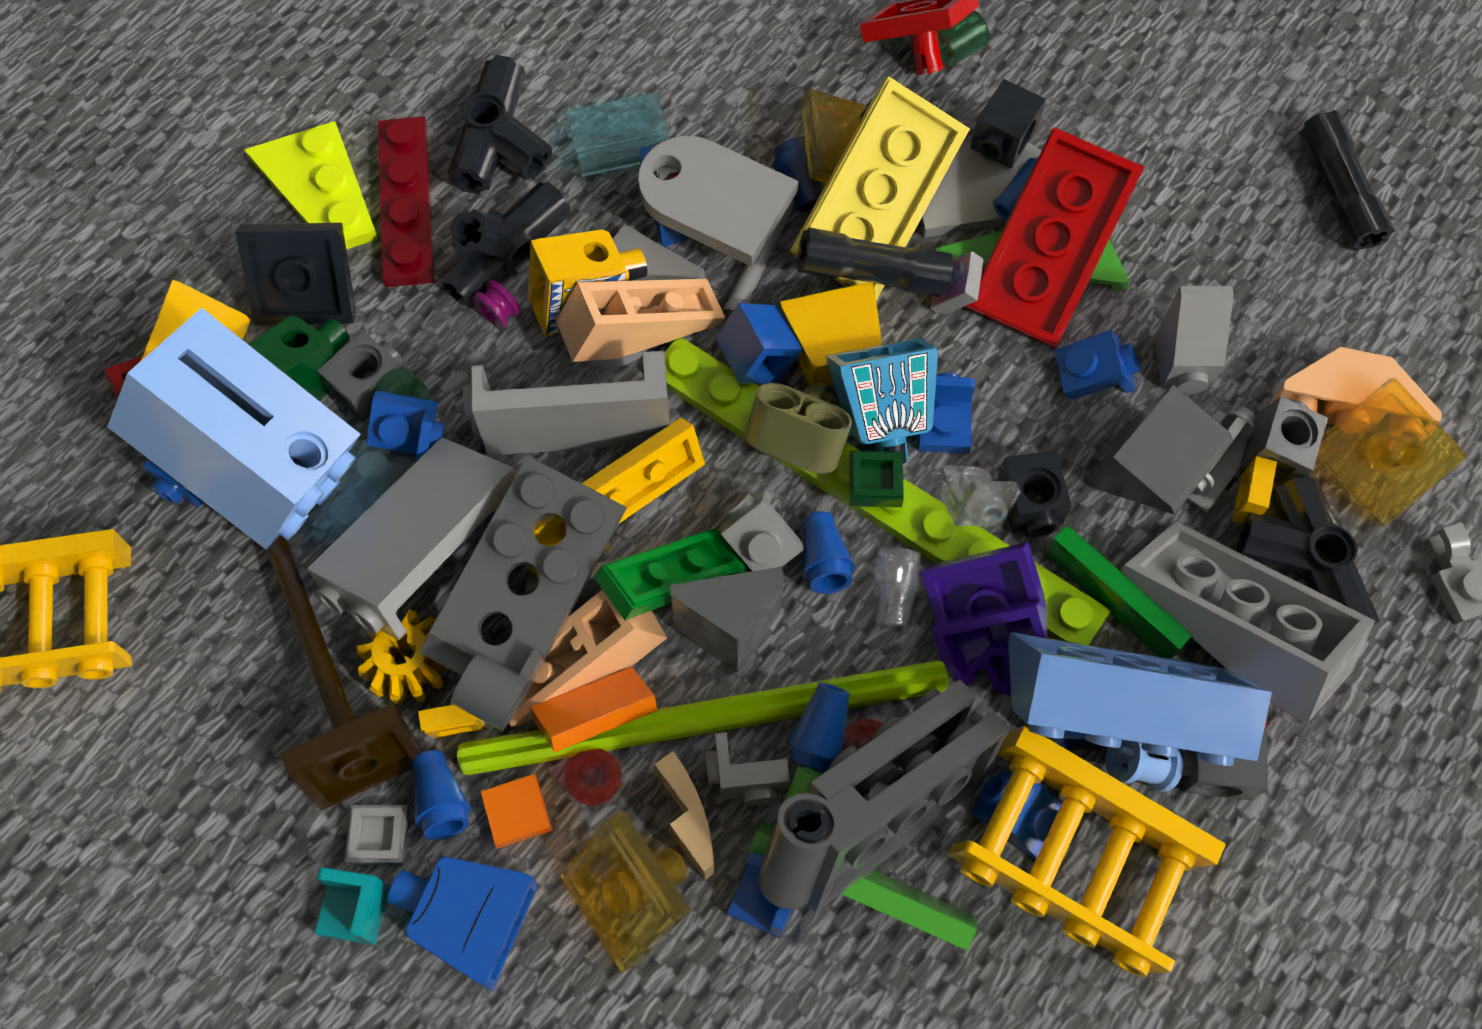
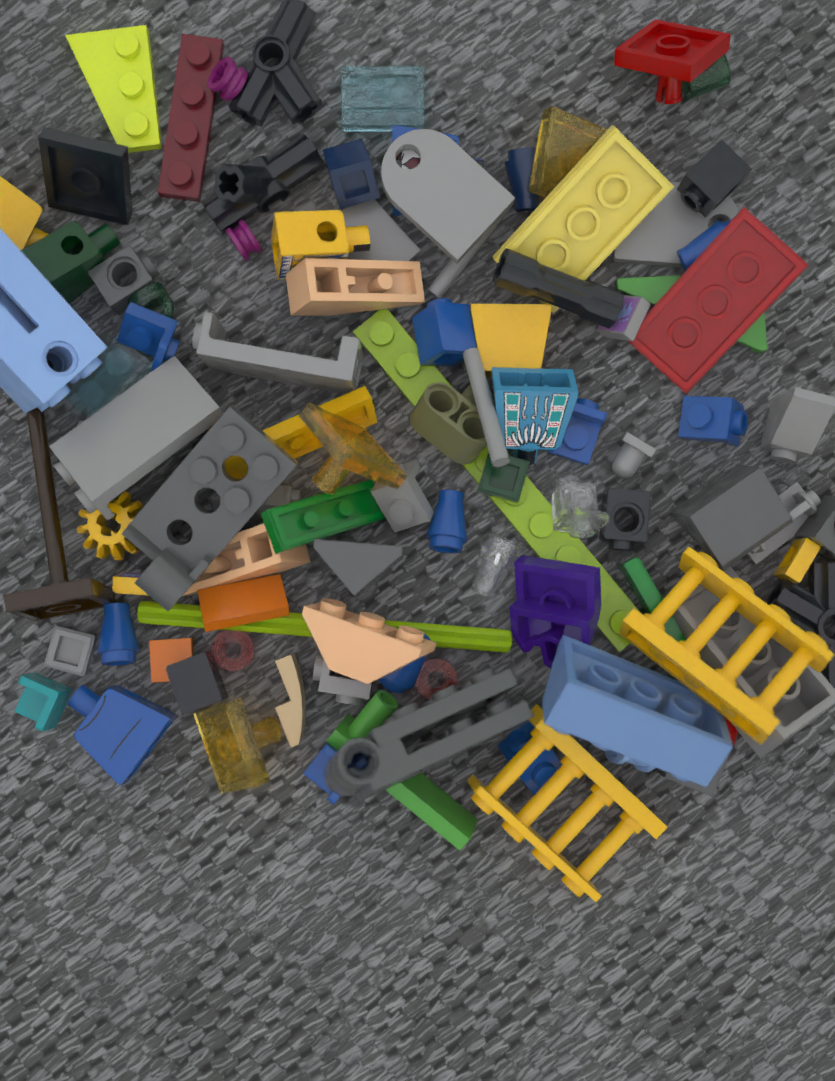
camera: 20 degrees right, 20 degrees up
(440, 148) = (227, 79): none -> magenta bush
(555, 824) = (196, 682): none -> black panel
(605, 204) = (351, 173): none -> dark blue brick
(684, 482) = (350, 450): none -> clear yellow tile
(767, 707) = (362, 643): none -> light nougat slope
(834, 396) = (485, 407): none -> light grey bar
(1018, 424) = (630, 456): none -> light grey piece
(1199, 631) = (718, 686): none -> yellow fence

